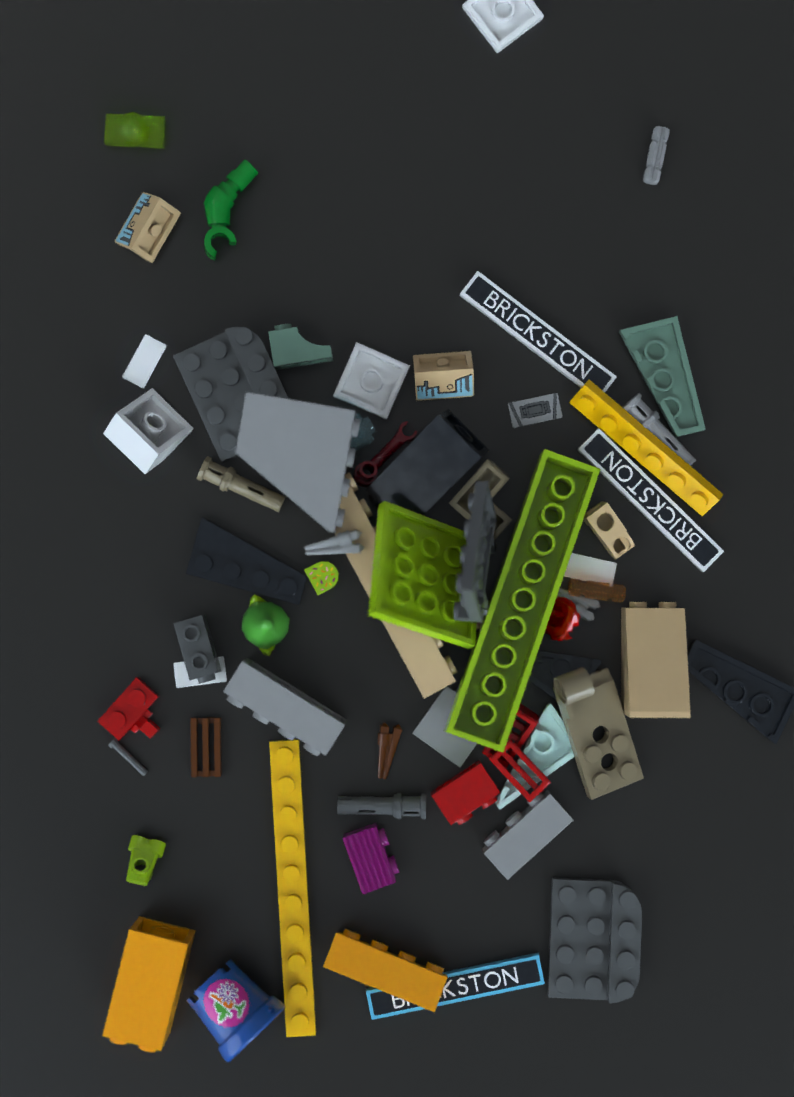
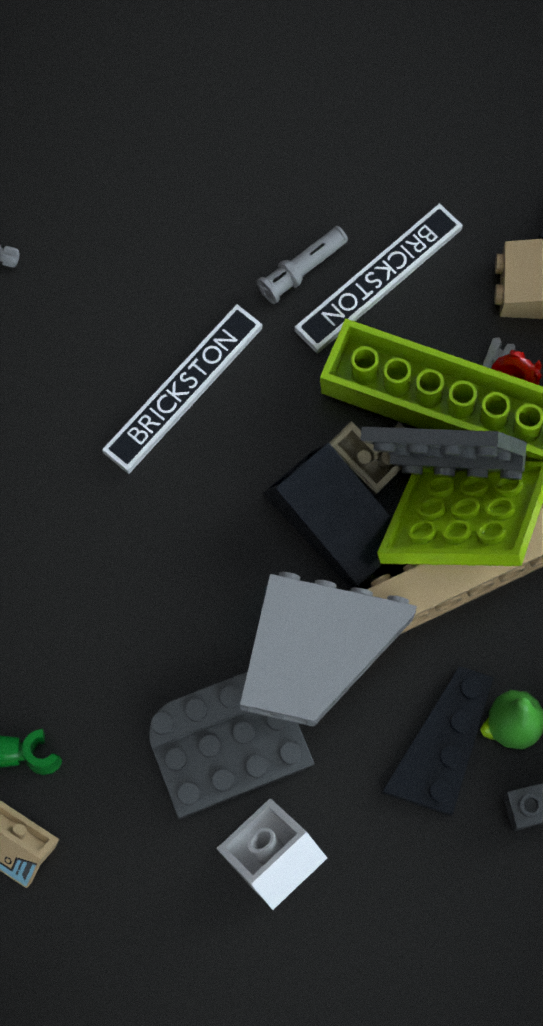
camera: 90 degrees left, 15 degrees down
(144, 361) = (181, 857): white sticker -> none
(228, 479) = (336, 755): dark tan pin -> none
(292, 350) = (180, 668): sand green arch -> none
(322, 576) = (458, 648): lime tile -> none
(336, 545) = (429, 612): light grey piece -> none
(371, 380) = (224, 579): white tile -> none
(379, 459) = (298, 550): dark red brick -> none
(443, 375) = (222, 493): tan panel -> none
(535, 410) = (269, 397): sticker -> none
(590, 569) = (458, 338): white sticker -> none
(596, 590) = (481, 336): clear orange axle -> none
(609, 529) = (414, 318): tan leg -> none
(646, 448) = (319, 277): yellow plate -> none
(665, 367) = (231, 252): sand green wing -> none

